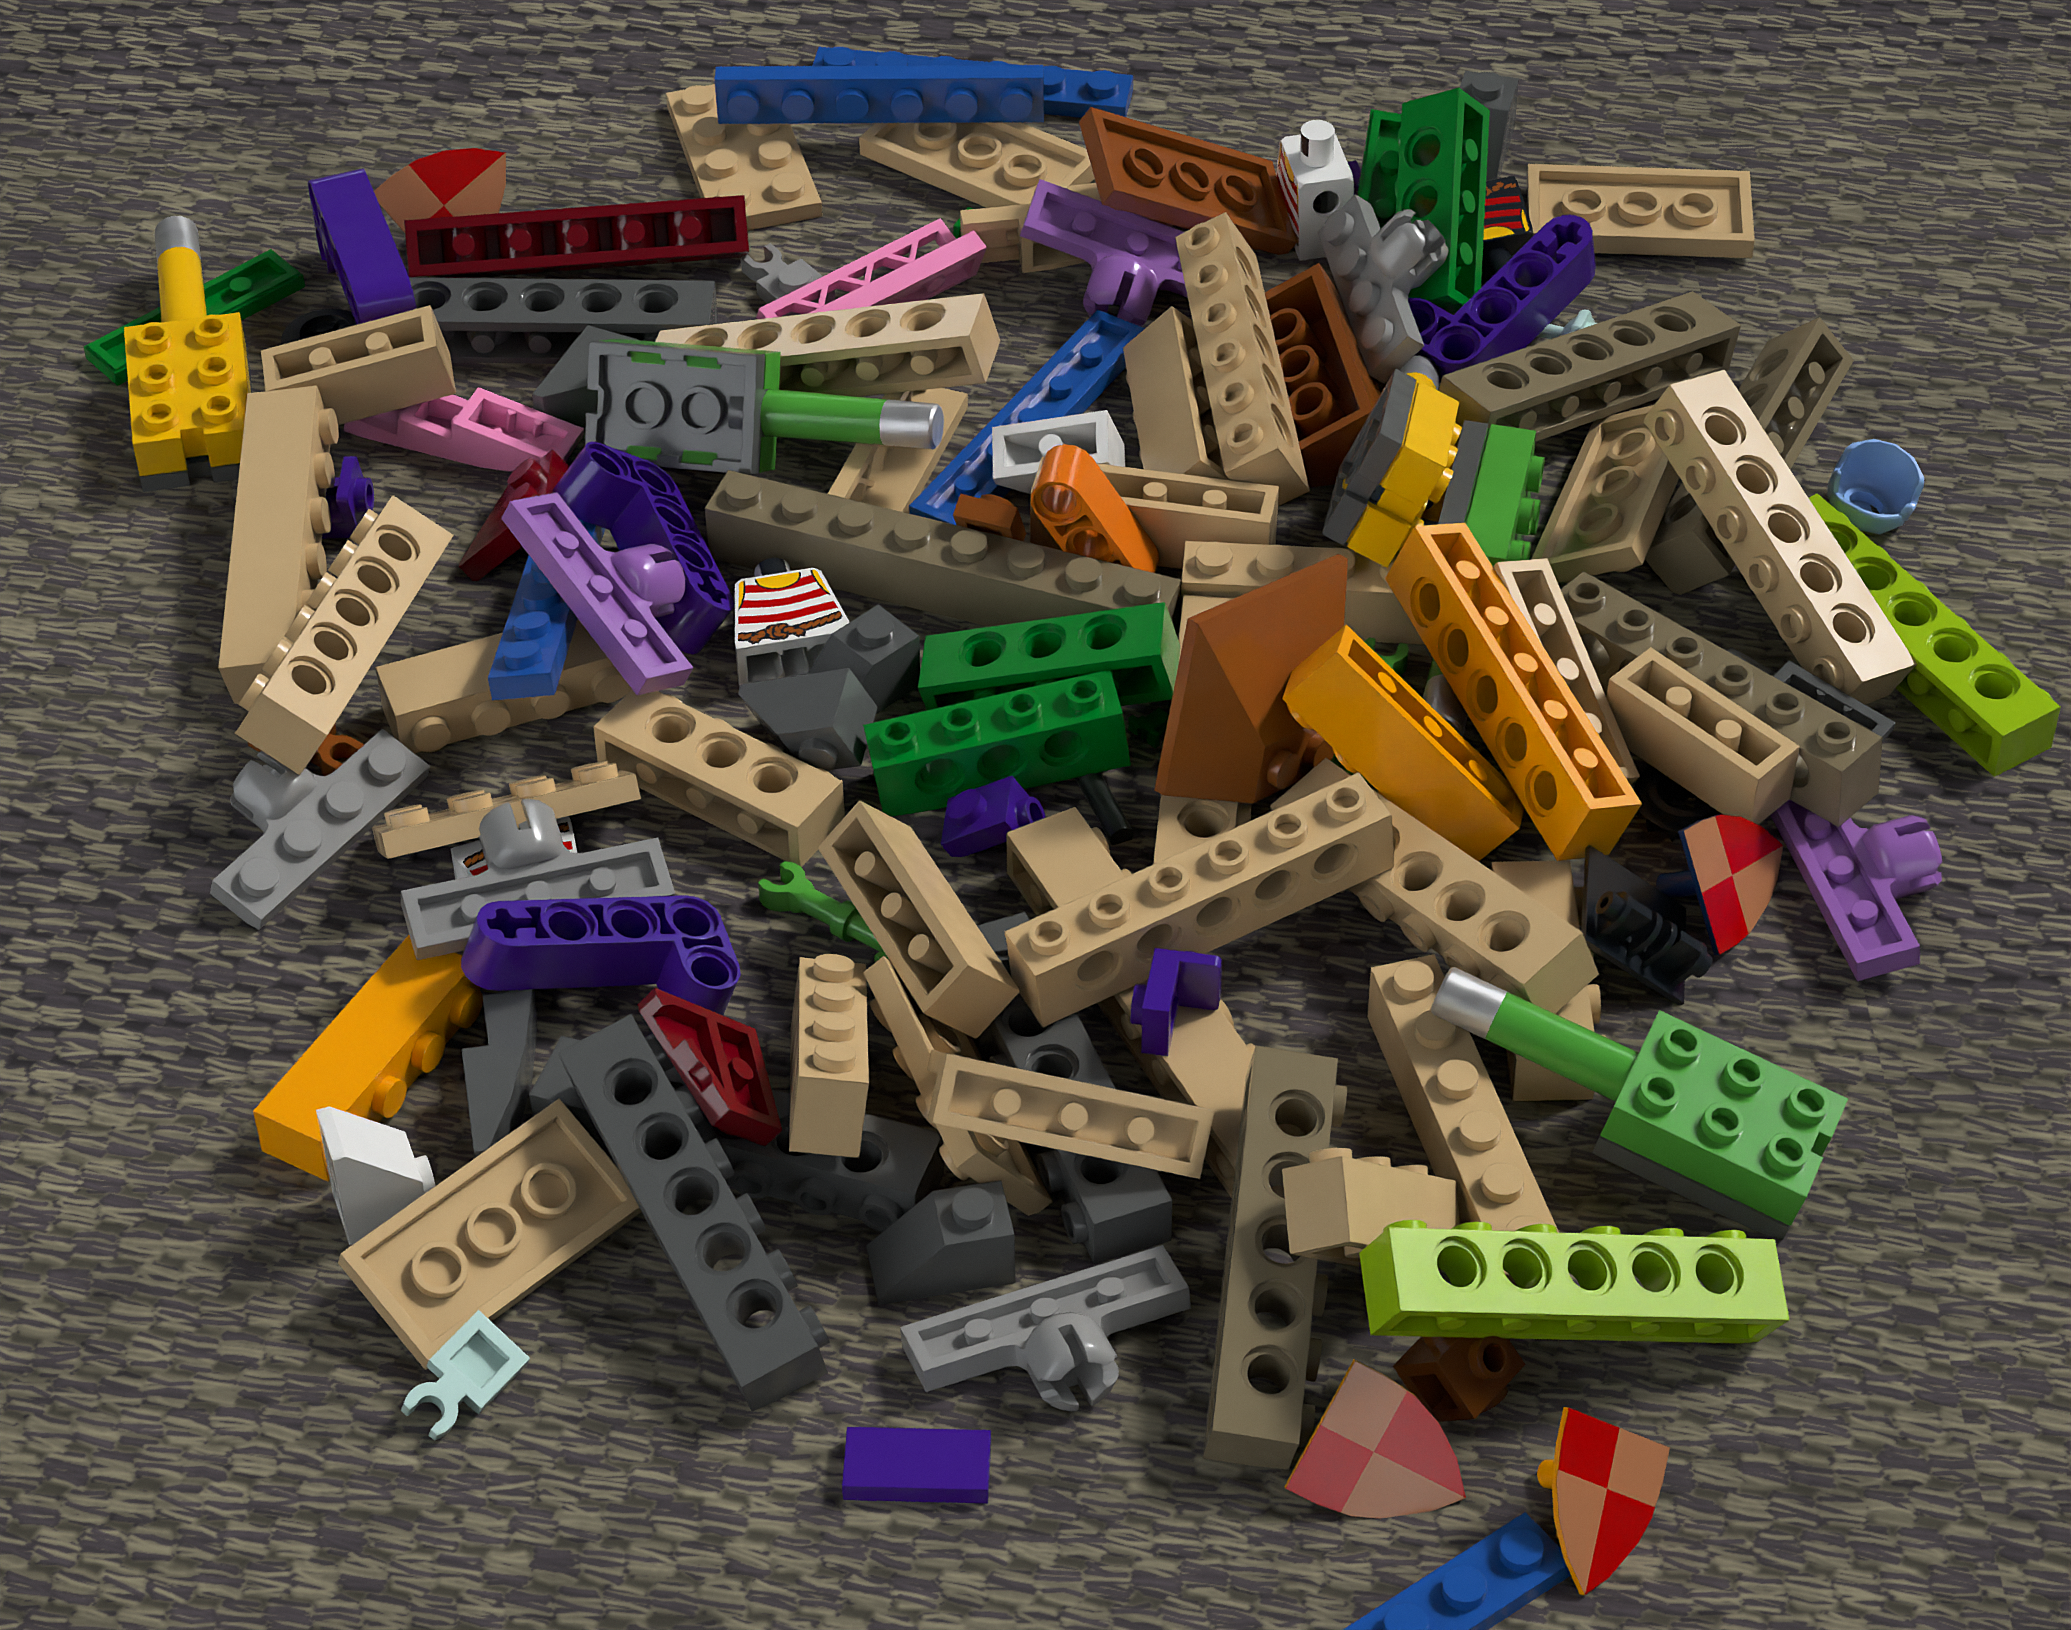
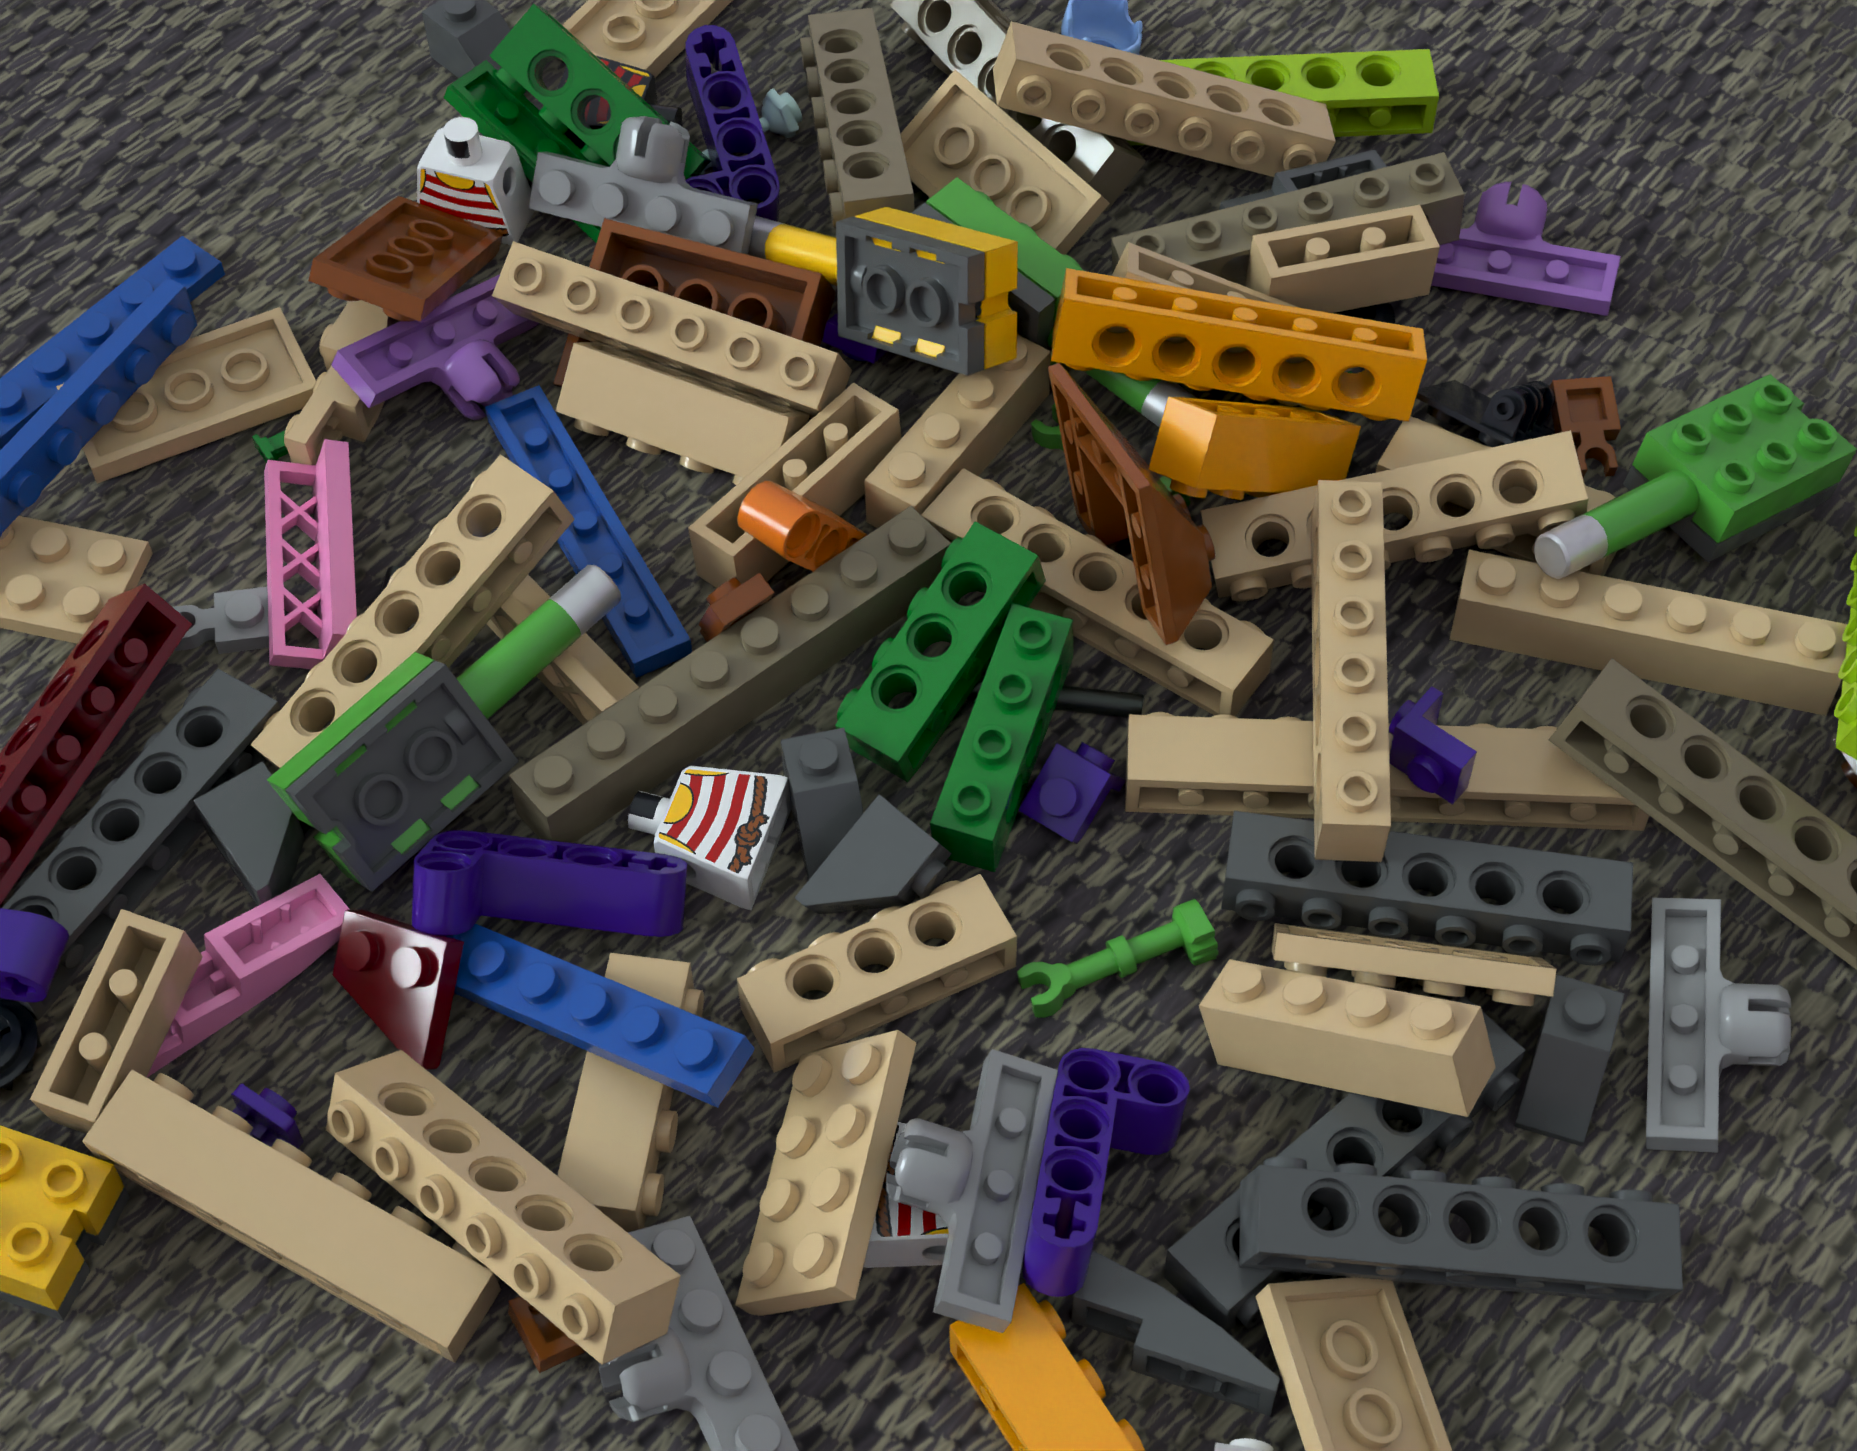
camera: 60 degrees left, 10 degrees up
(608, 591) = (632, 940): medium lavender plate -> none
(717, 1063) = (1329, 1128): dark red wing -> none
(917, 1465) = (1790, 1198): dark purple tile -> none
(918, 920) = (1228, 889): tan brick -> none
(1022, 445) = (658, 532): white slope -> none
(1068, 1115) = (1535, 881): tan fence -> none
(1345, 1202) = (1763, 725): tan brick -> none
(1710, 1000) = (1592, 415): none -> dark orange plate
(1730, 871) = (1458, 347): shield -> none

